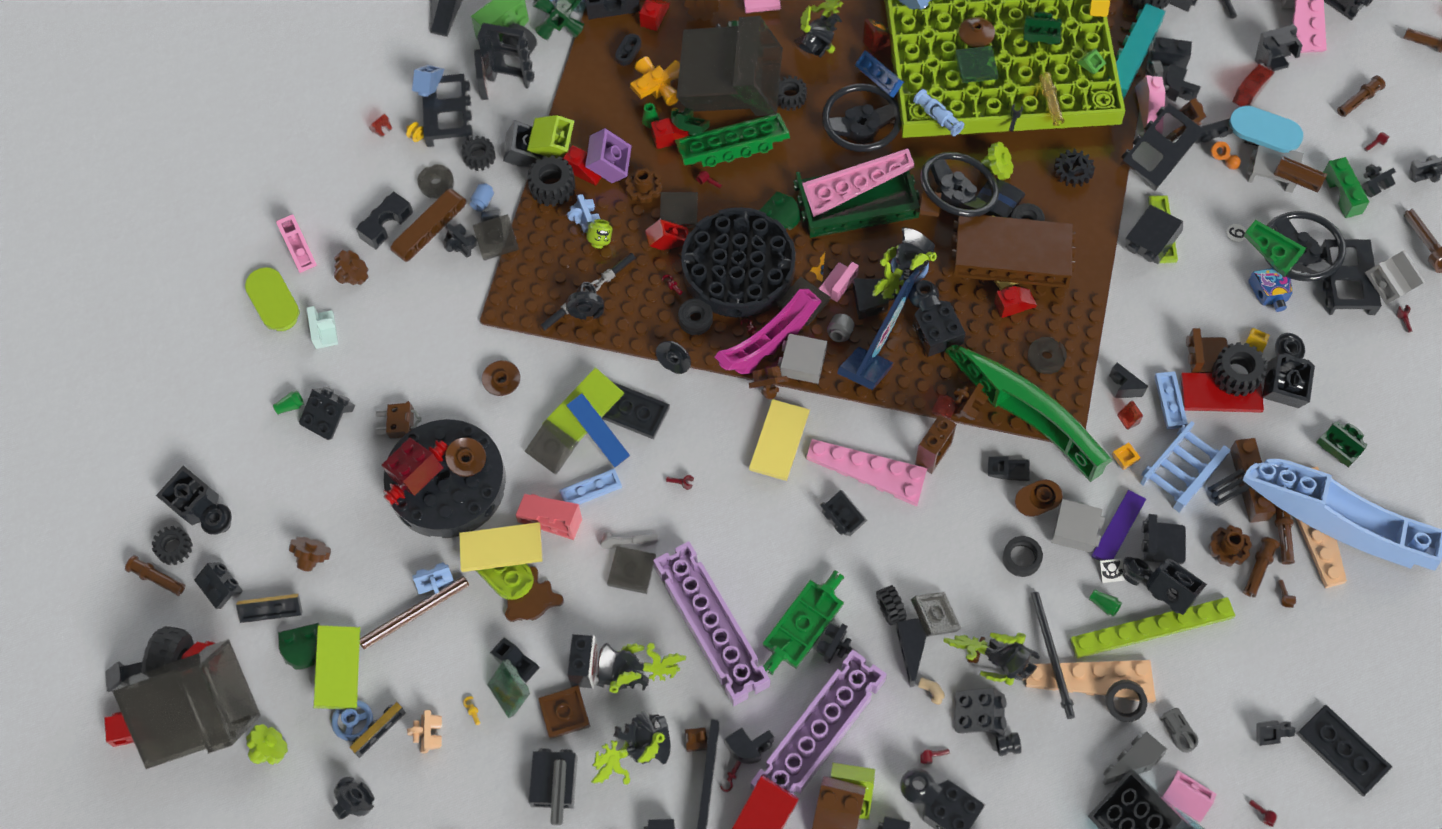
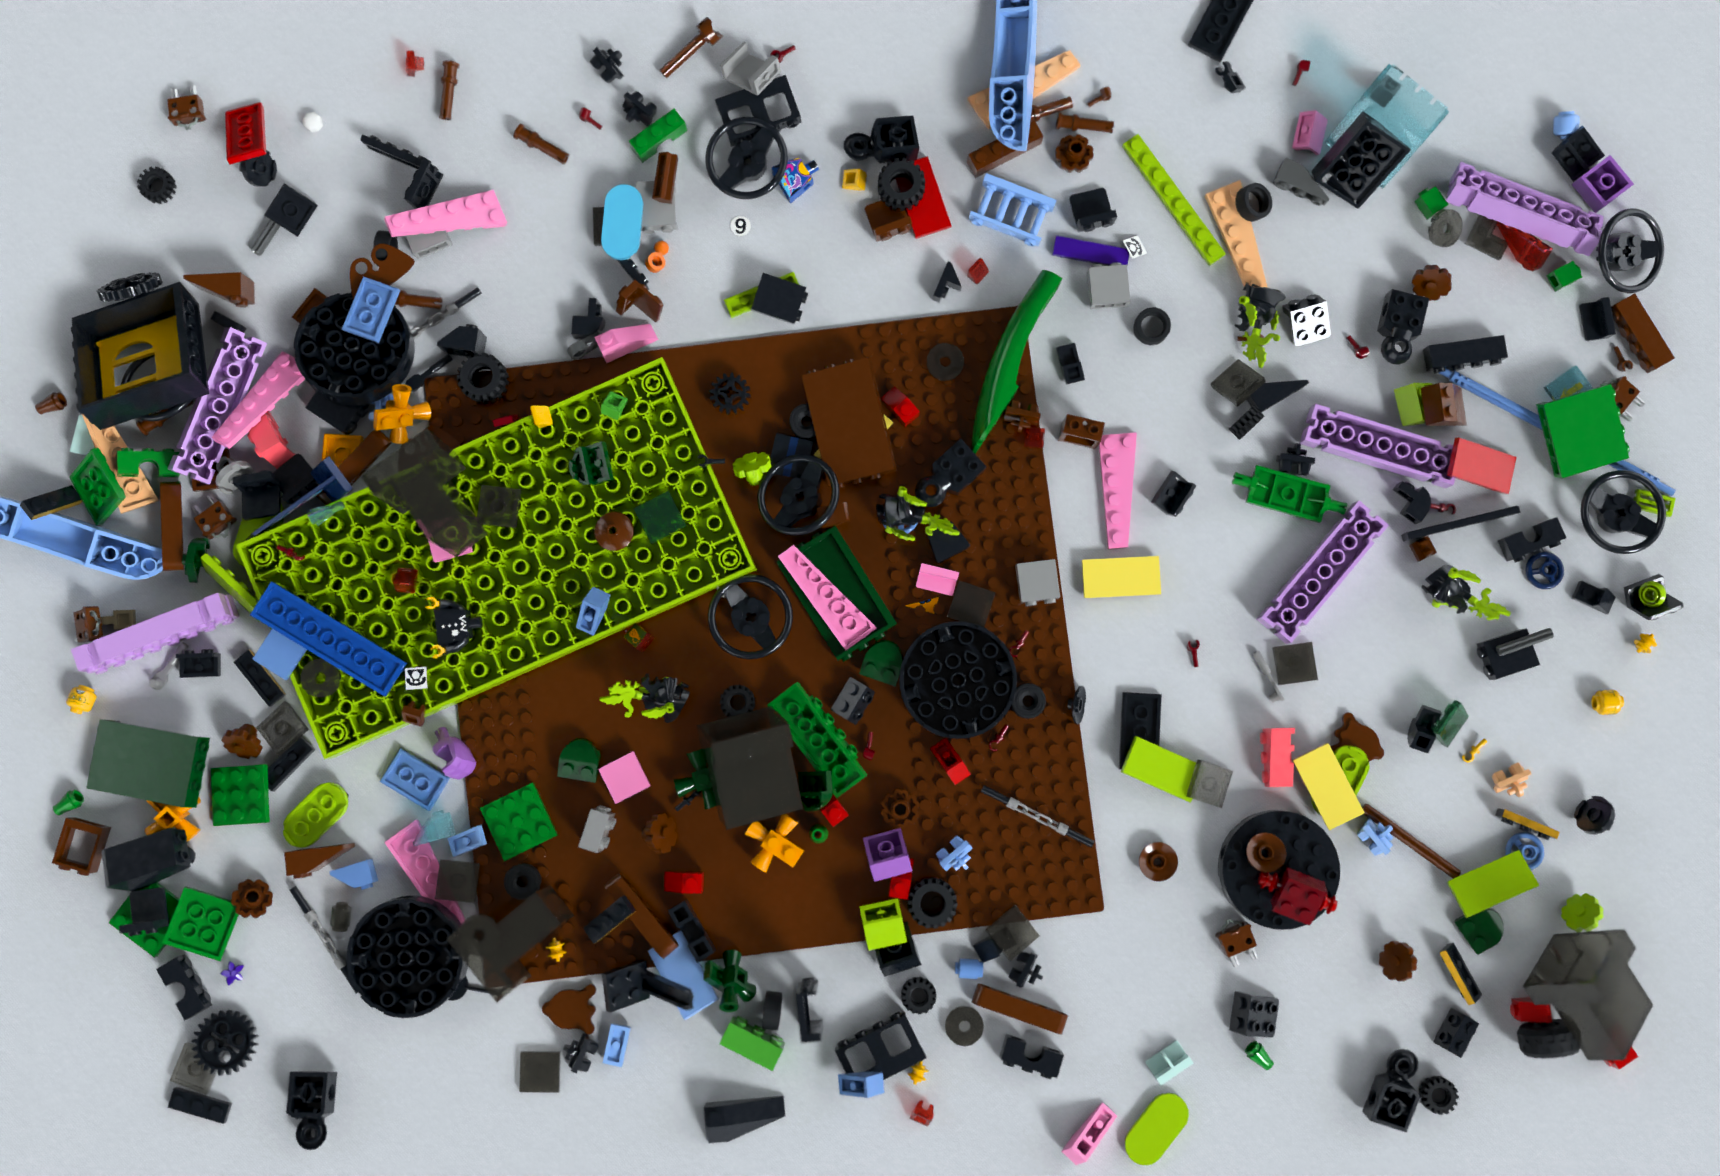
camera: 110 degrees left, 20 degrees up
(119, 673) = (1569, 1074): black slope -> none
(147, 572) = (1472, 1105): reddish brown pin -> none
(350, 268) = (1100, 1062): reddish brown plant -> none
(481, 74) = (832, 1031): black tile -> none
(564, 712) = (1444, 670): reddish brown tile -> none
(583, 661) = (1403, 668): black piece -> none
(585, 303) = (1057, 811): black tile -> none
(591, 488) = (1232, 732): light blue tile -> none
(598, 430) = (1180, 745): blue tile -> none
(599, 233) = (974, 829): lime head -> none
(623, 667) = (1397, 636): helmet -> none
(626, 53) = (742, 890): black plate -> none
(680, 208) = (913, 763): clear smoke tile -> none
(754, 179) = (853, 701): none -> black bracket
(774, 376) = (1072, 605): reddish brown hips -> none
(790, 320) = (1033, 621): dark pink arch -> none
(840, 327) = (990, 559): dark grey head -> none
(866, 366) = (1021, 517): dark blue piece -> none
(879, 73) = (692, 616): blue tile -> none
(934, 688) = (1300, 364): tan arm -> none
(938, 112) = (735, 532): light blue piece -> none
(1008, 744) = (1326, 288): black wheel -> none
(1038, 498) = (1092, 325): reddish brown piece -> none
(1049, 92) = (676, 430): clear yellow pin -> none
(1066, 702) = (1279, 248): black bar -> none
(1108, 604) = (1168, 242): green cone -> none
(1125, 456) = (1020, 264): light orange plate -> none
(1137, 45) = (560, 372): teal brick -> none
(1167, 583) = (1136, 193): black brick -> none
(1170, 400) = (948, 239): light blue plate -> none
(1171, 52) = (552, 338): black brick -> none
(1171, 151) = (685, 303): black window -> none
(1180, 726) = (1255, 155): dark grey piece -> none
(1215, 495) = (1028, 177): black tile -> none
(1252, 86) = (562, 249): clear red slope -> none
(1274, 247) = (764, 180): green wing -> none
(1277, 45) = (517, 235): black panel -> none
(1343, 442) = (936, 80): dark green slope -> none

